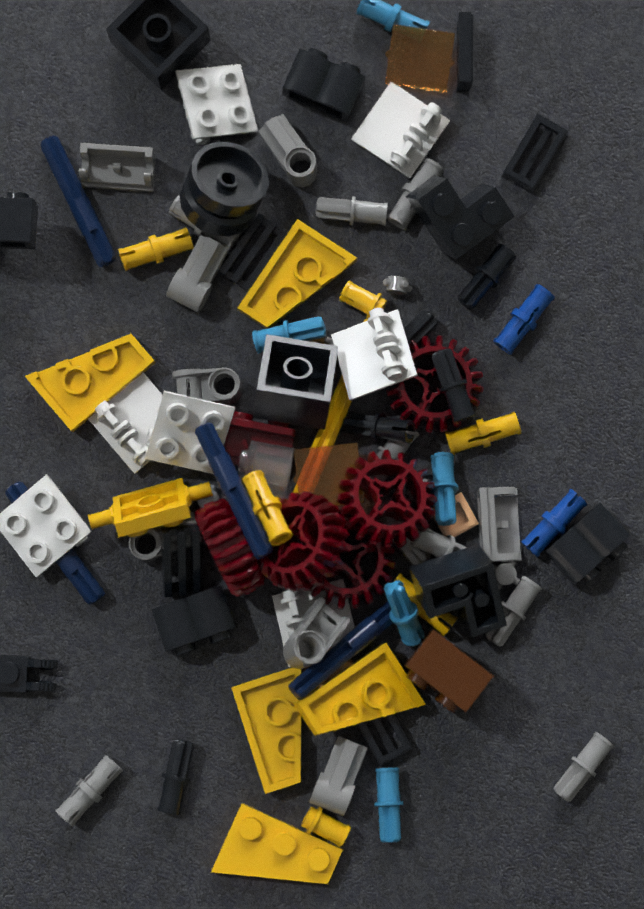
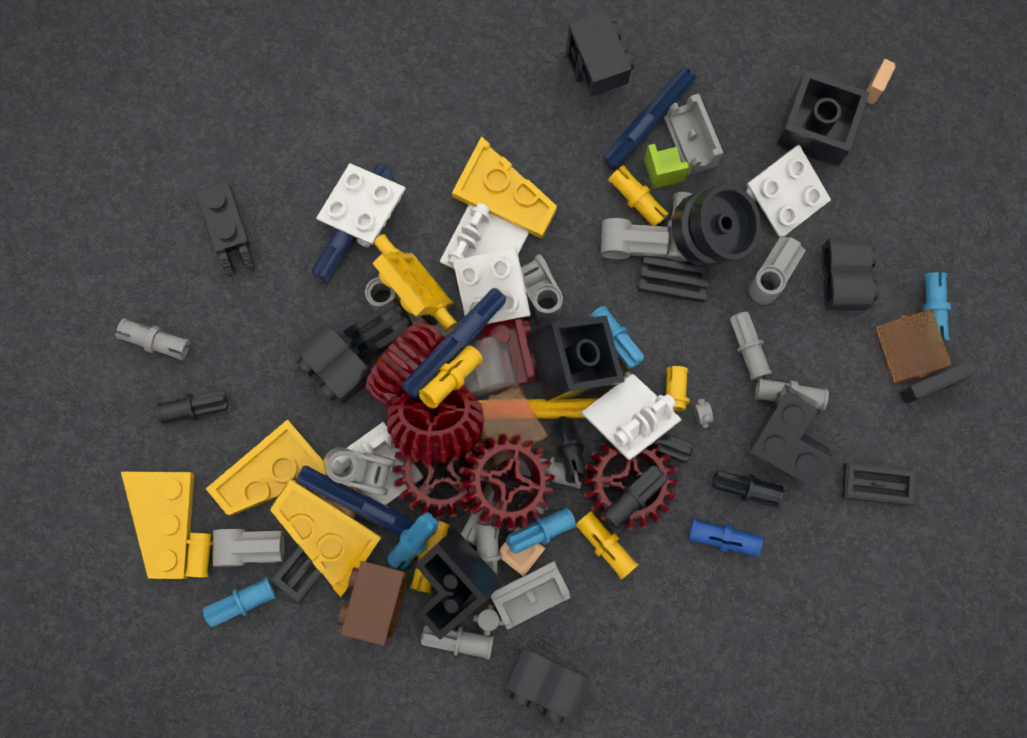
camera: 65 degrees right, 5 degrees down
(136, 209) = (664, 166): none -> lime panel
(294, 274) = (671, 320): yellow wing -> none
(401, 129) = (842, 357): white hinge -> none
(554, 523) = (553, 645): blue pin -> none

